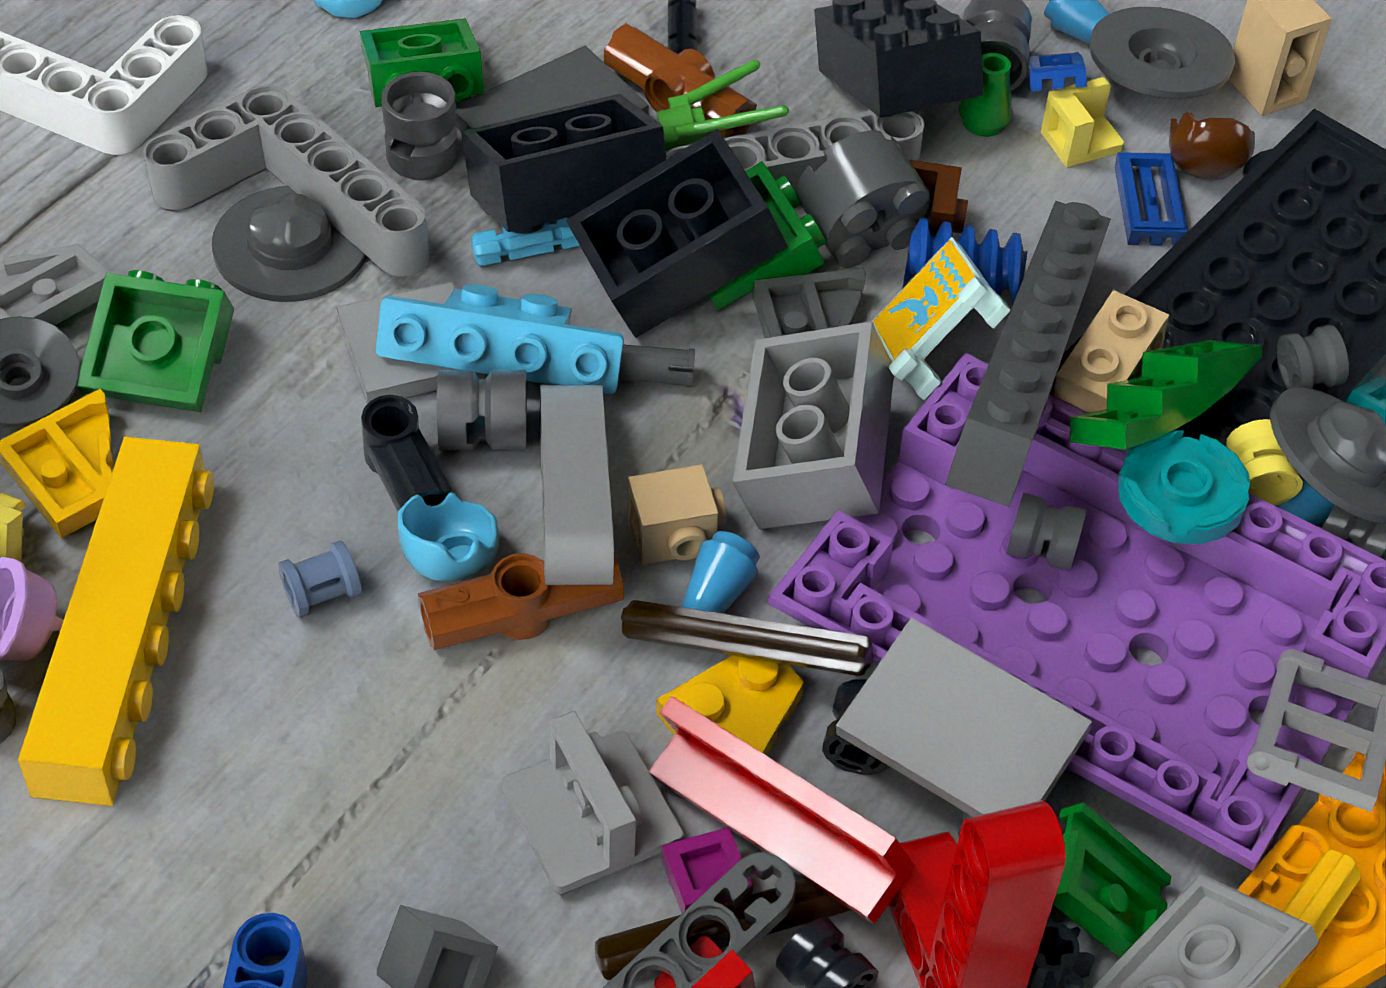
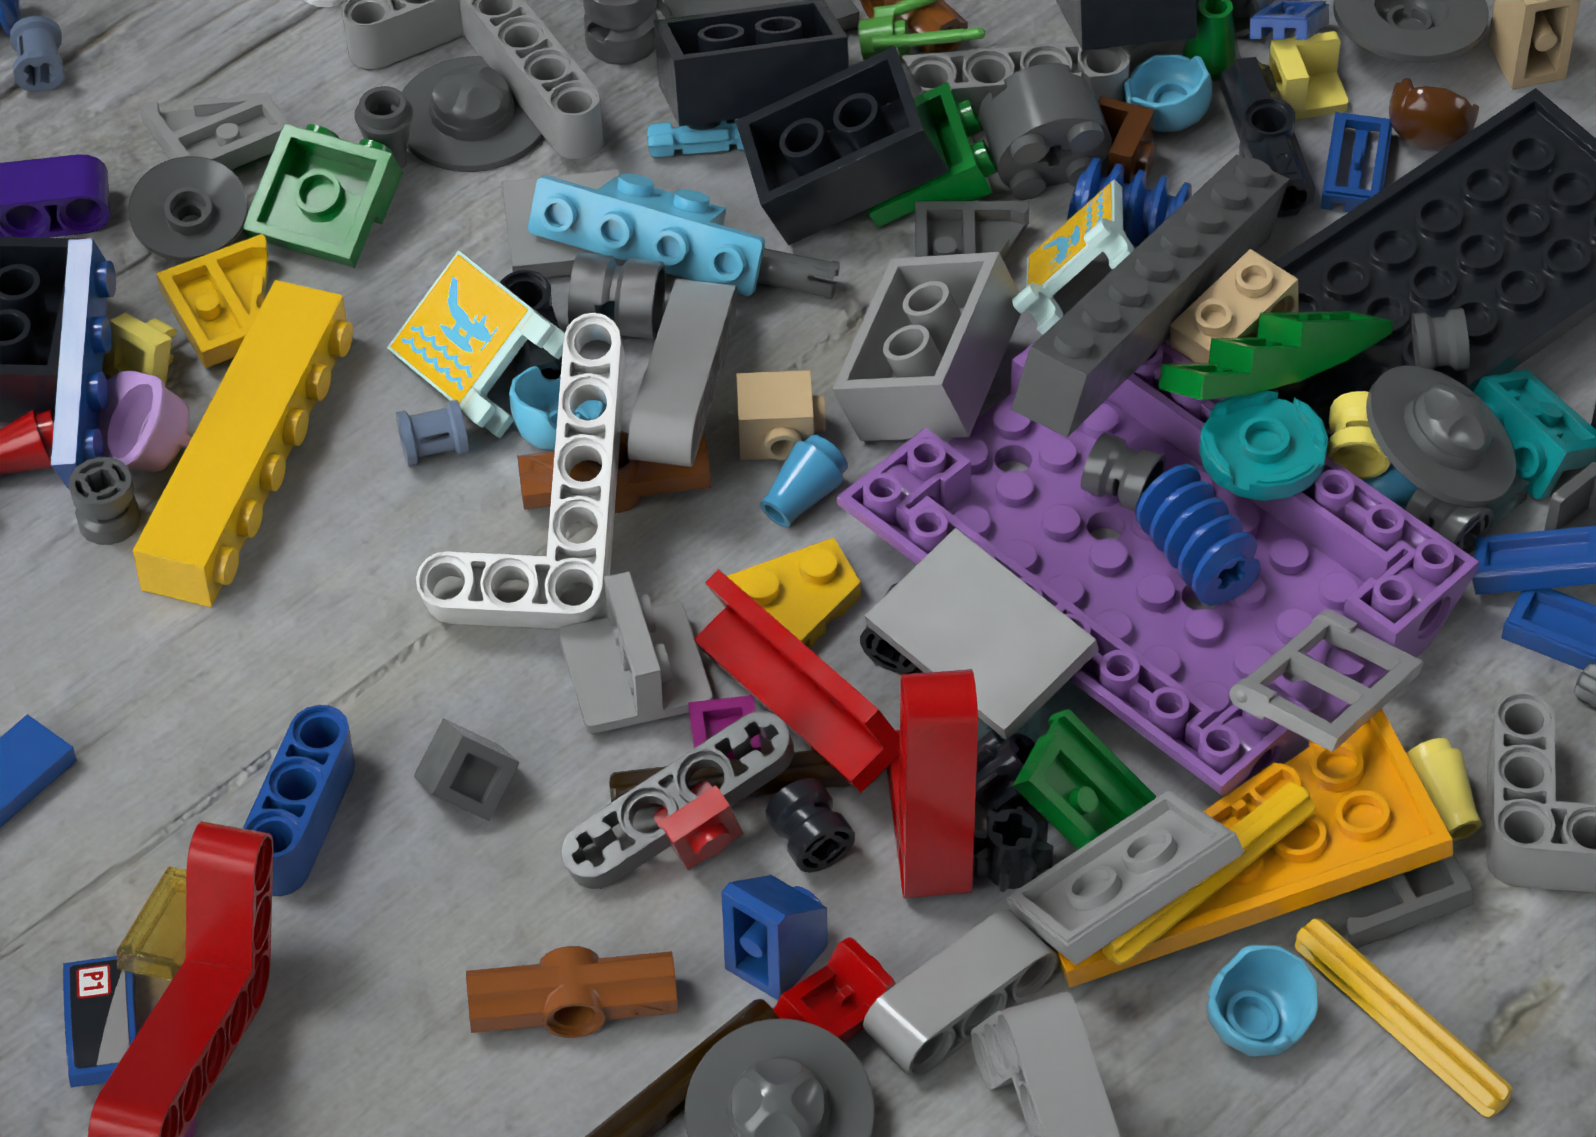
camera: 15 degrees right, 0 degrees up
(209, 255) = (387, 119): none -> dark grey cone
(339, 471) = (468, 336): none -> flag
(493, 638) = (570, 503): none -> white beam
(747, 637) = (811, 532): dark brown axle -> none
(966, 143) = (1173, 88): none -> medium azure hair
(1062, 171) = (1267, 128): none -> black piece
(1140, 589) = (1198, 535): none -> blue piece

